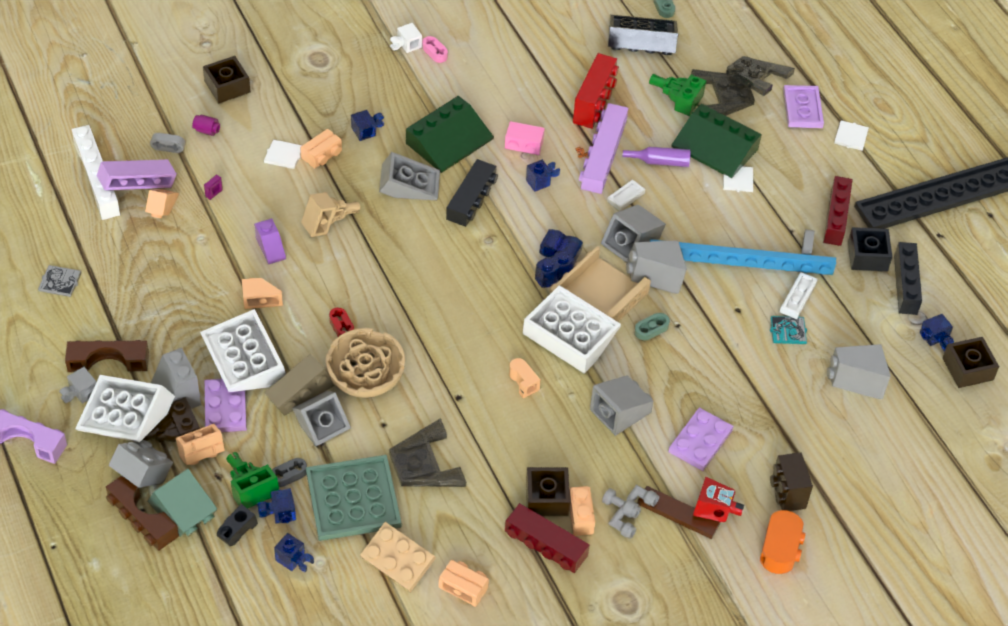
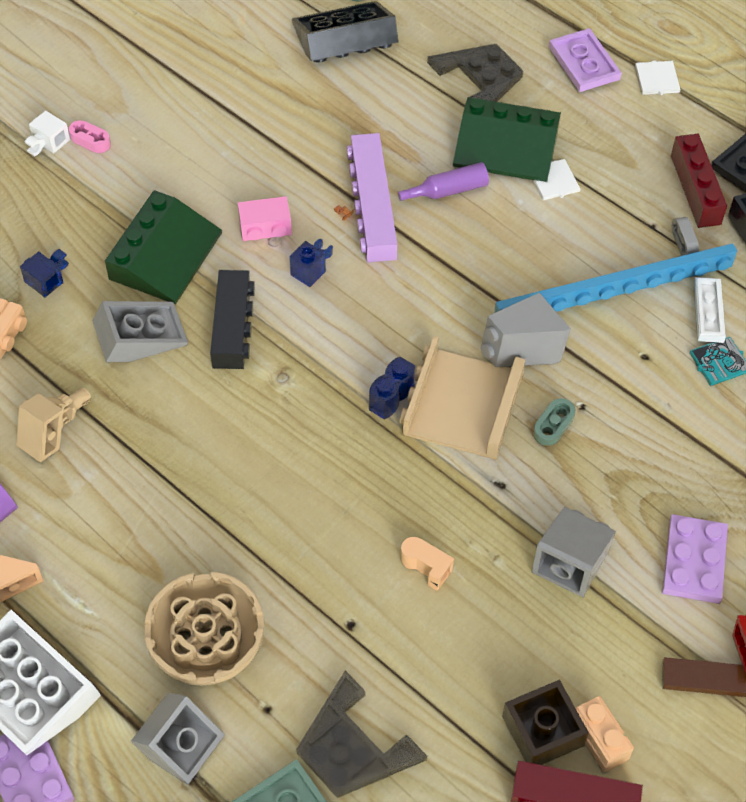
camera: 20 degrees left, 5 degrees up
(299, 385) = (124, 703): dark tan wedge -> none
(338, 325) = (144, 573): red beam -> none
(557, 241) = (378, 351): clear blue brick -> none
(570, 328) = (456, 467): white slope -> none
(595, 91) = (328, 124): red brick -> none
(626, 195) = (429, 251): white tile -> none
(628, 508) = (660, 702): light grey piece -> none
(631, 226) = (465, 300): light grey slope -> none
(682, 91) = (430, 88): green brick -> none
(753, 71) = (505, 36): clear smoke wing -> none

